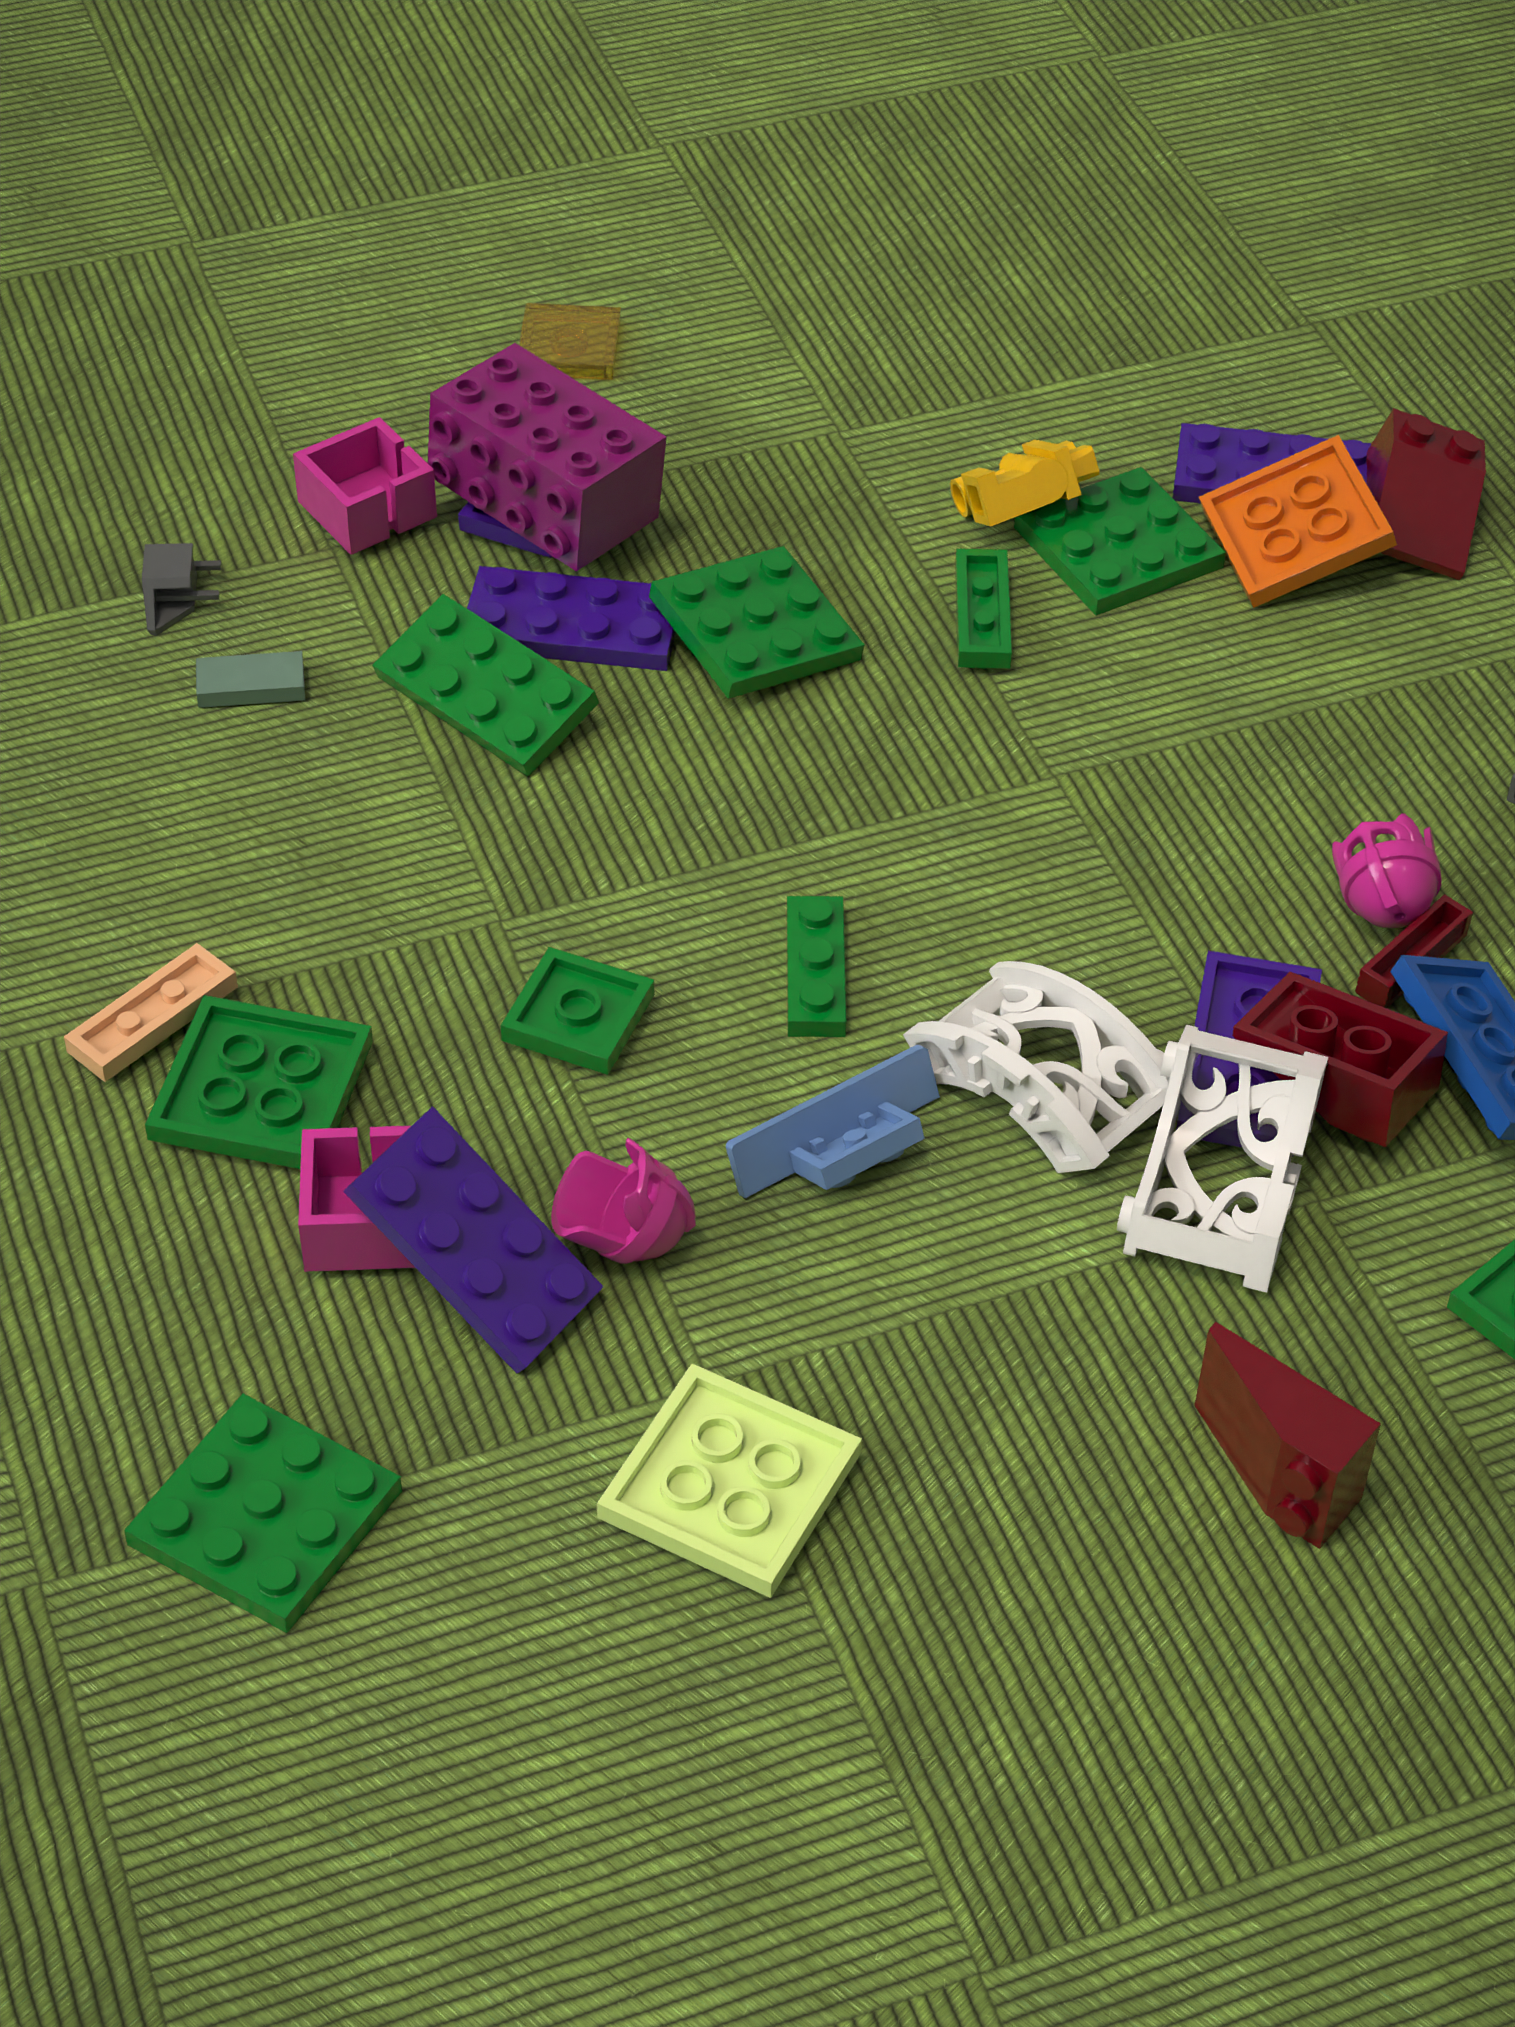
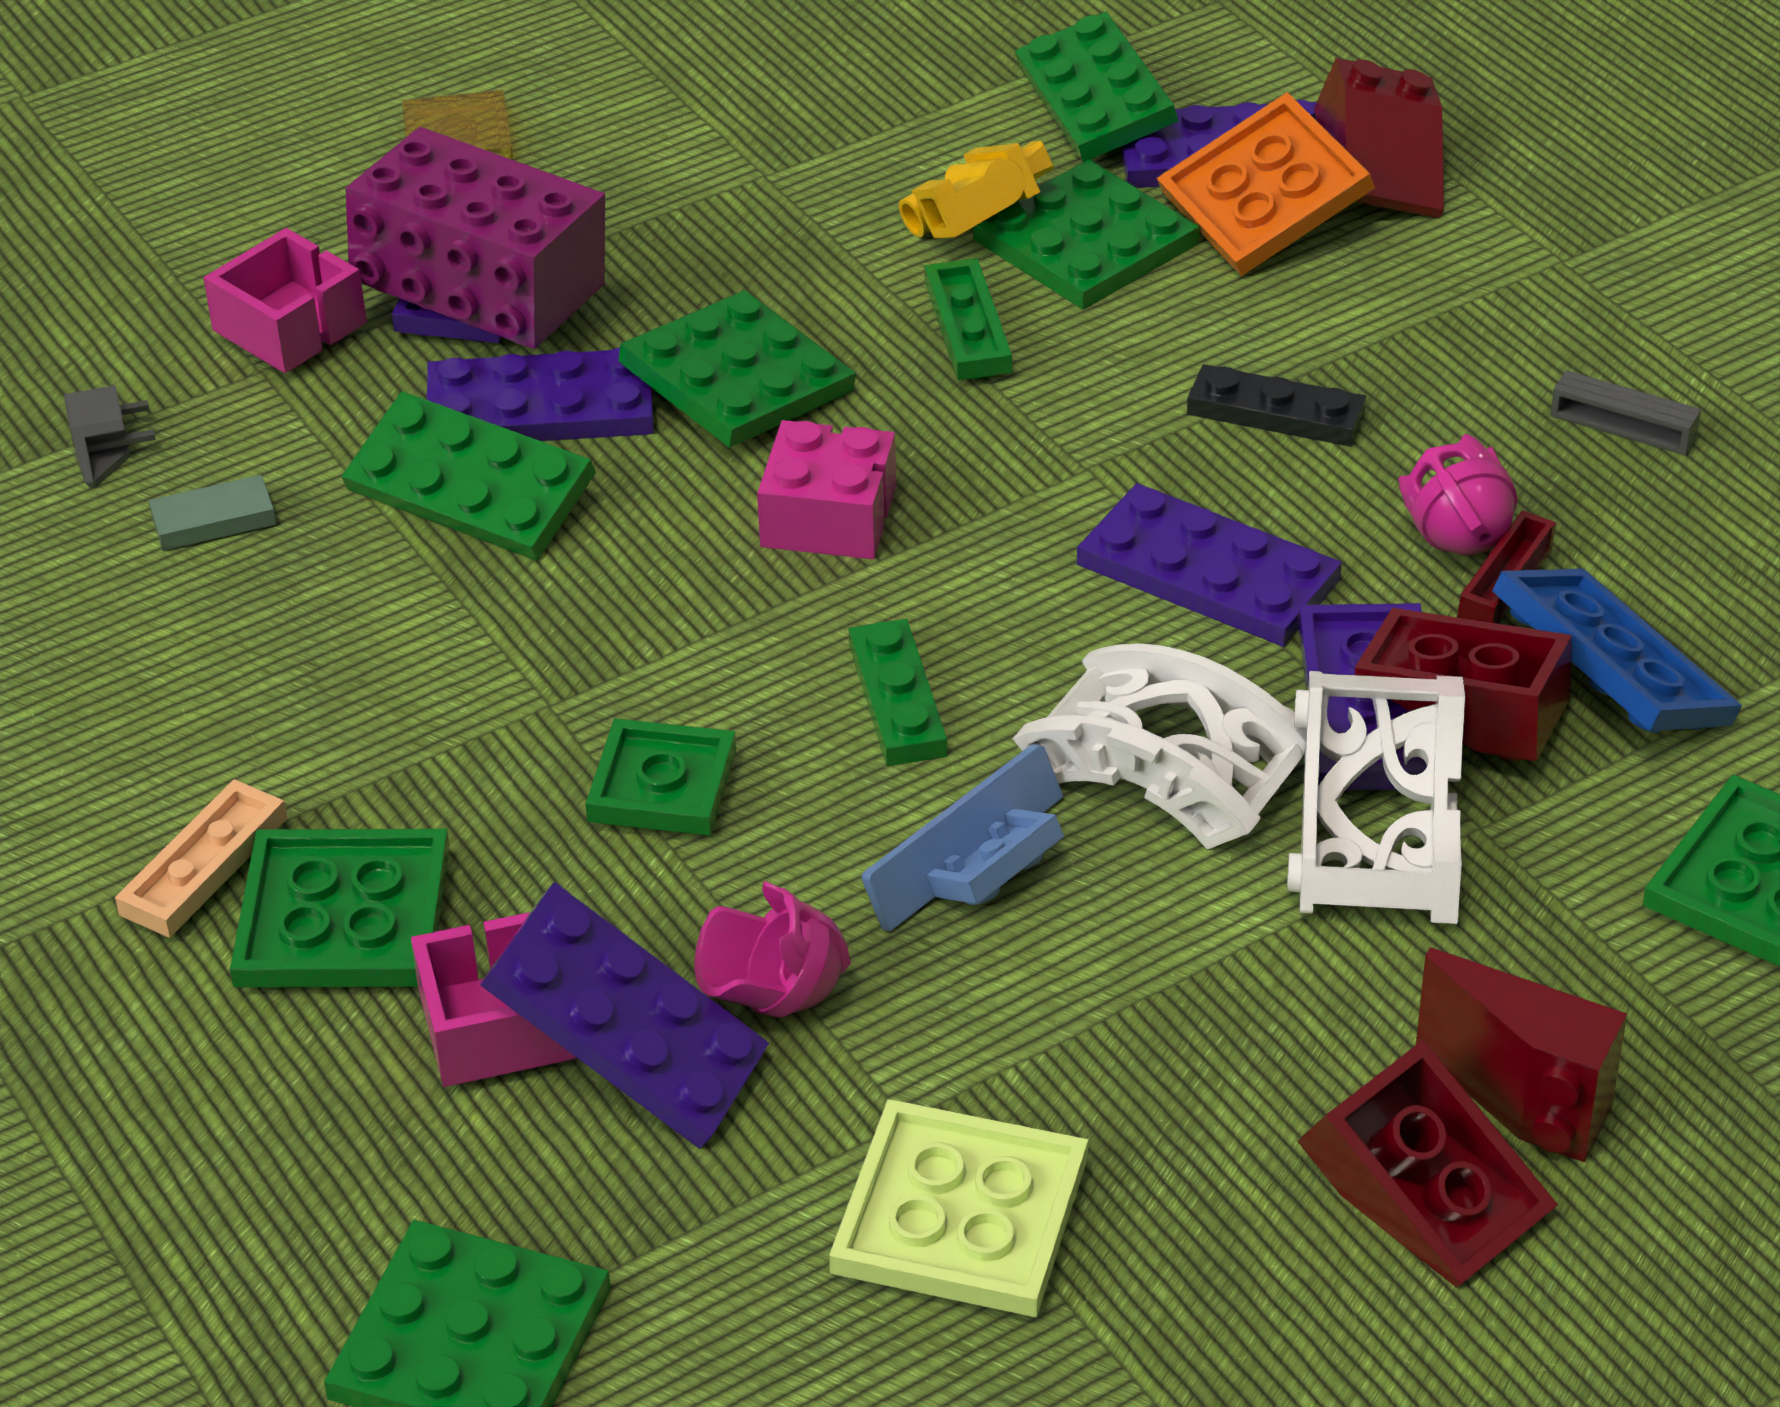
camera: 10 degrees left, 5 degrees down
(804, 757) = (827, 489): none -> dark pink piece
(1139, 891) = (1208, 563): none -> dark purple plate
(1167, 394) = (1096, 86): none -> green plate
(1167, 1528) = (1428, 1166): none -> dark red slope
(1248, 744) = (1276, 405): none -> black plate

